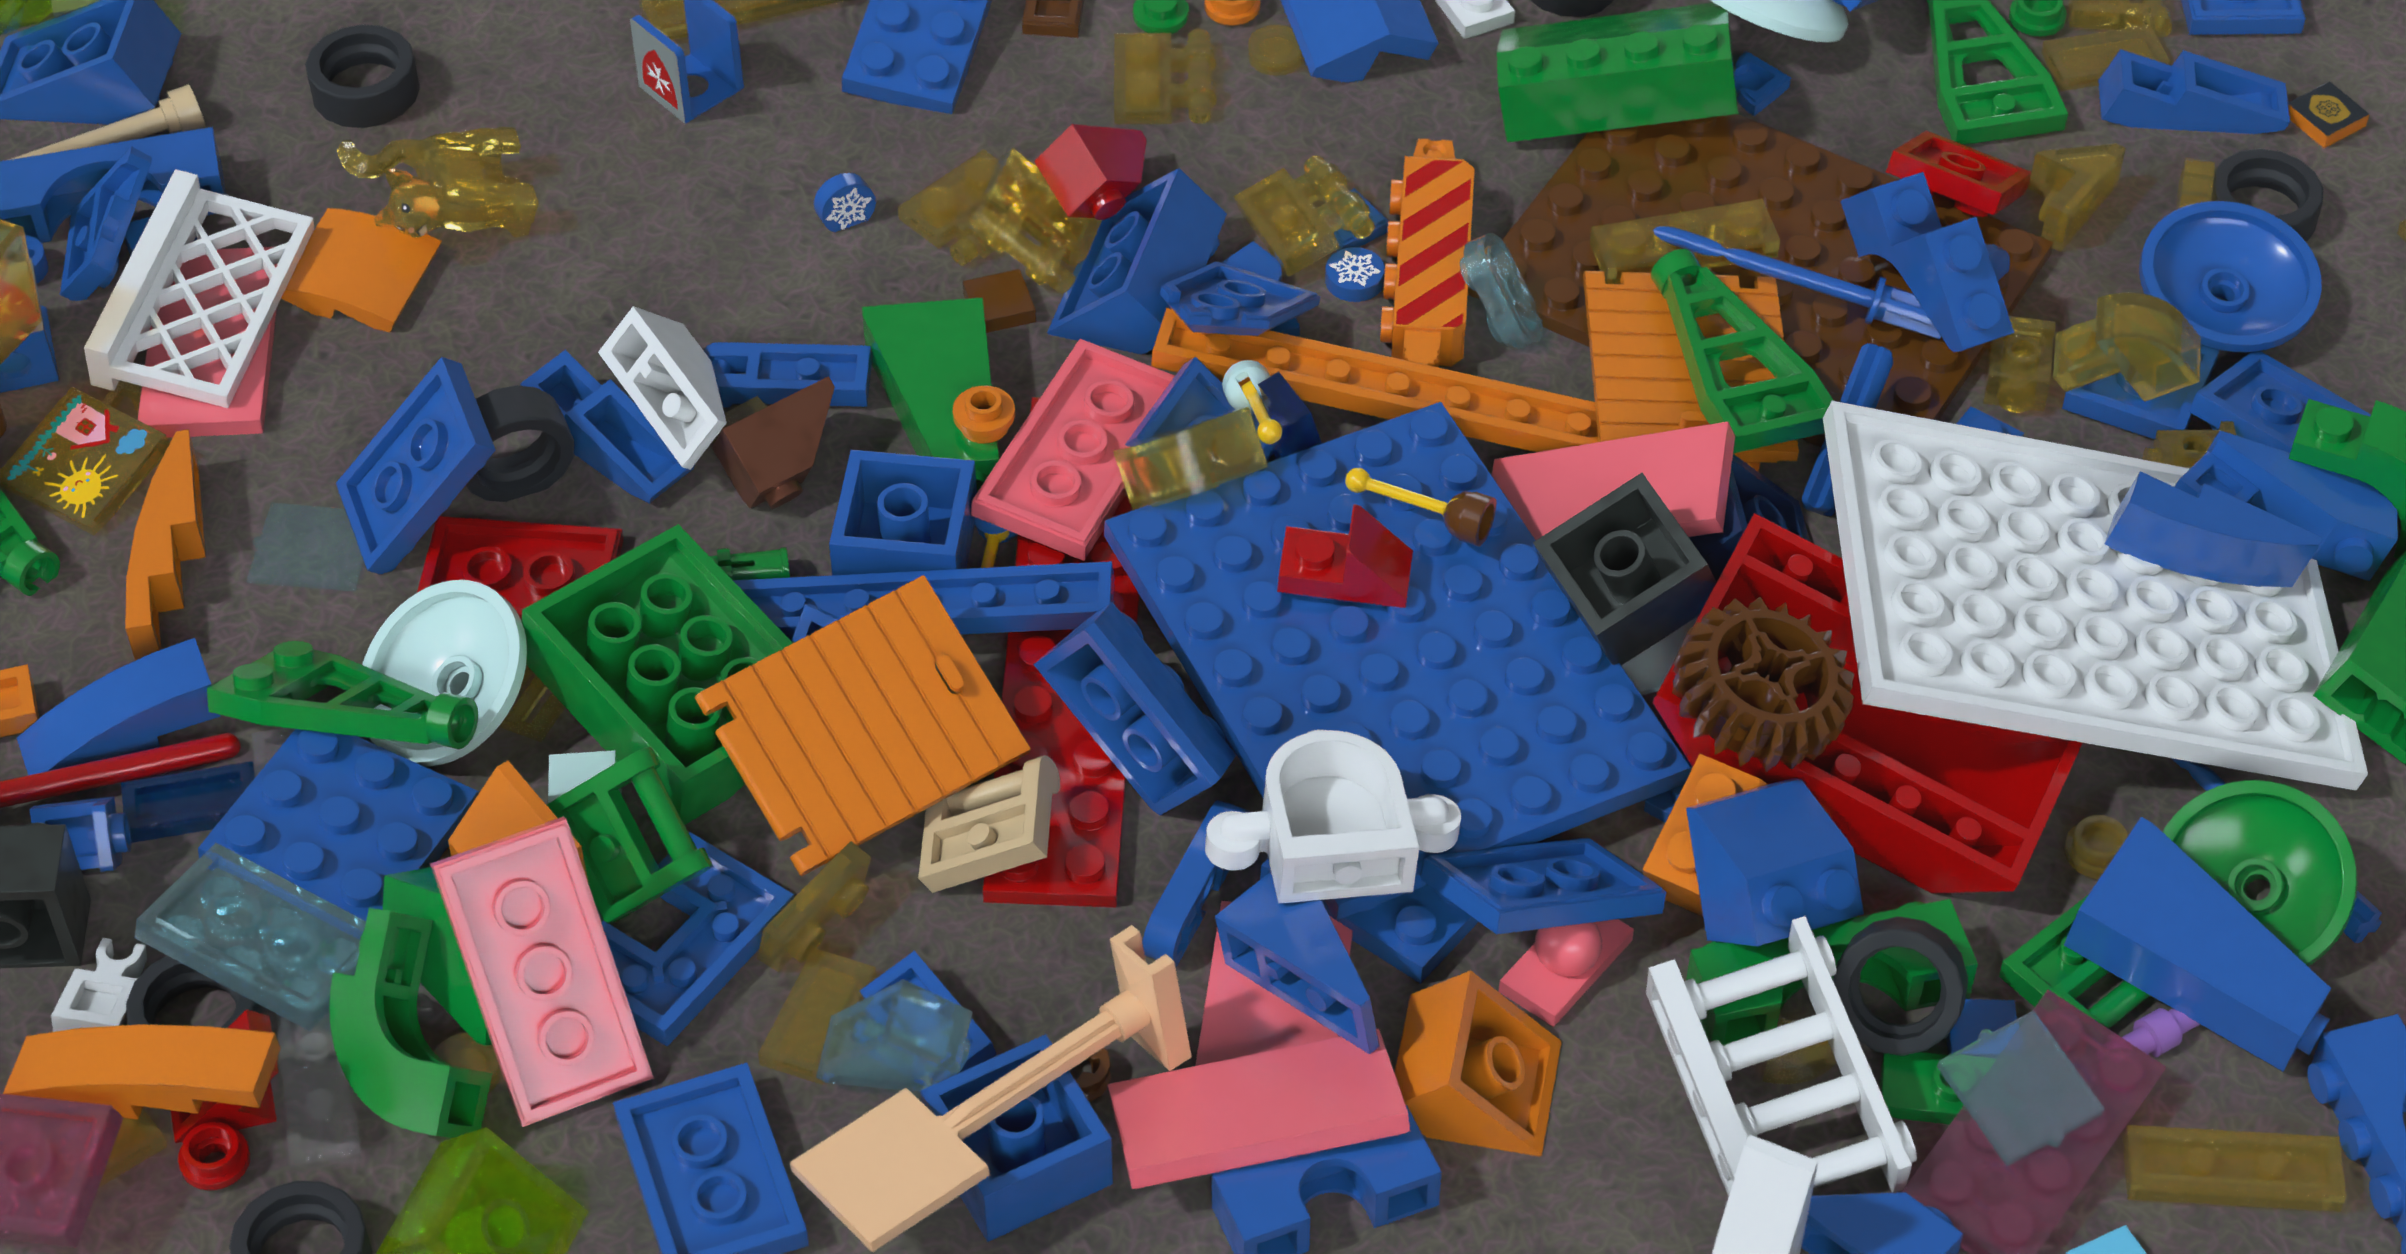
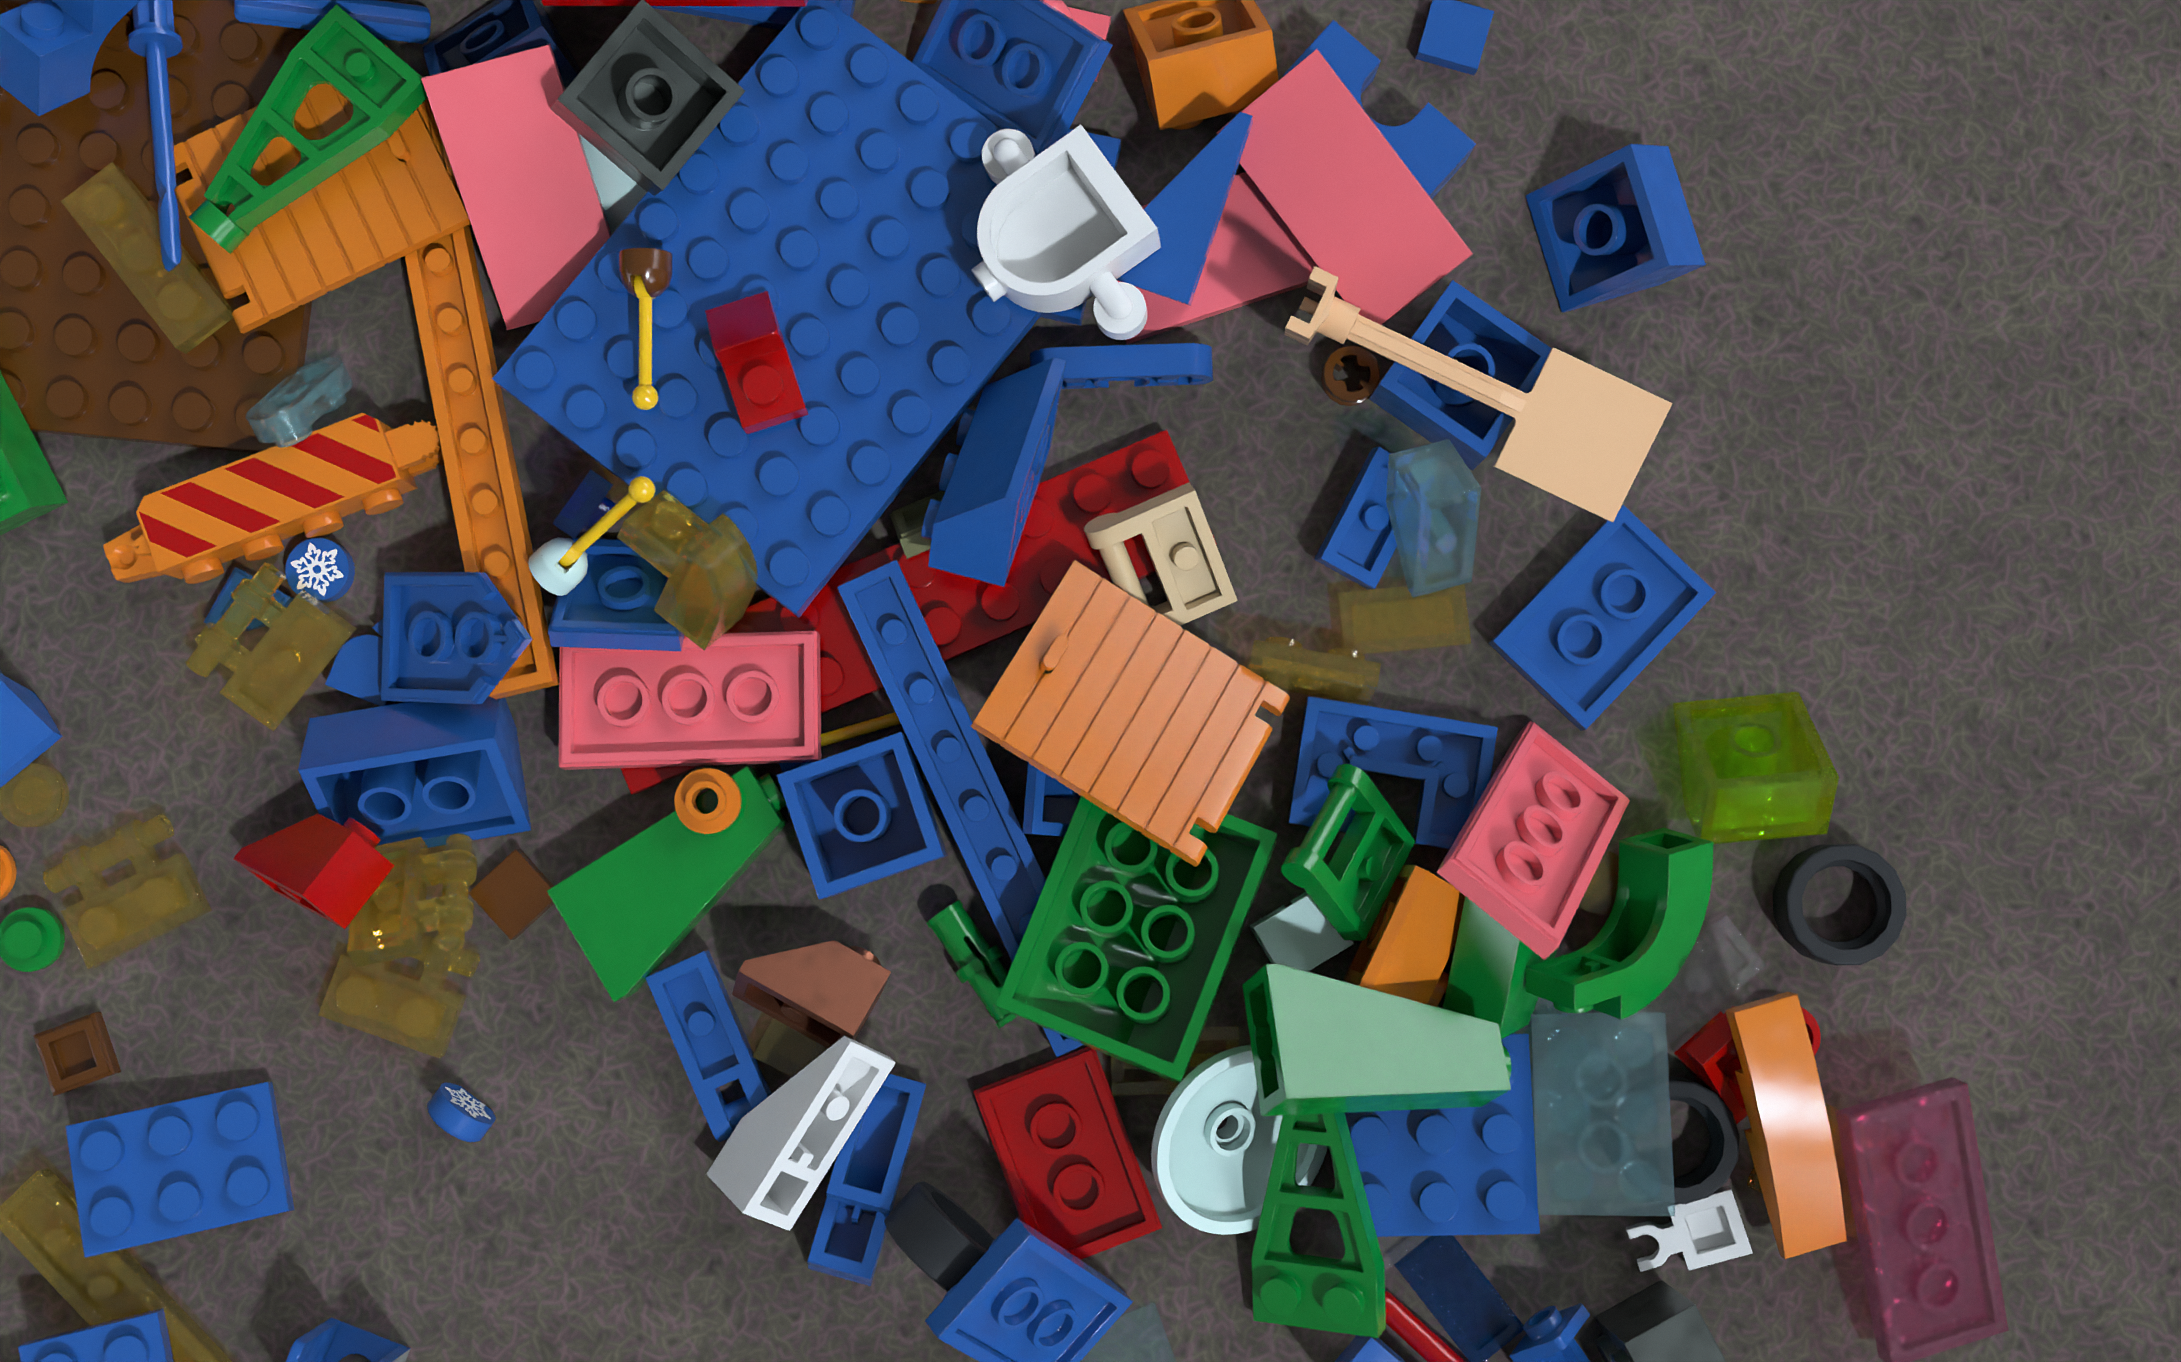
camera: 120 degrees left, 35 degrees up
(462, 722) = (1364, 1050): none -> slope

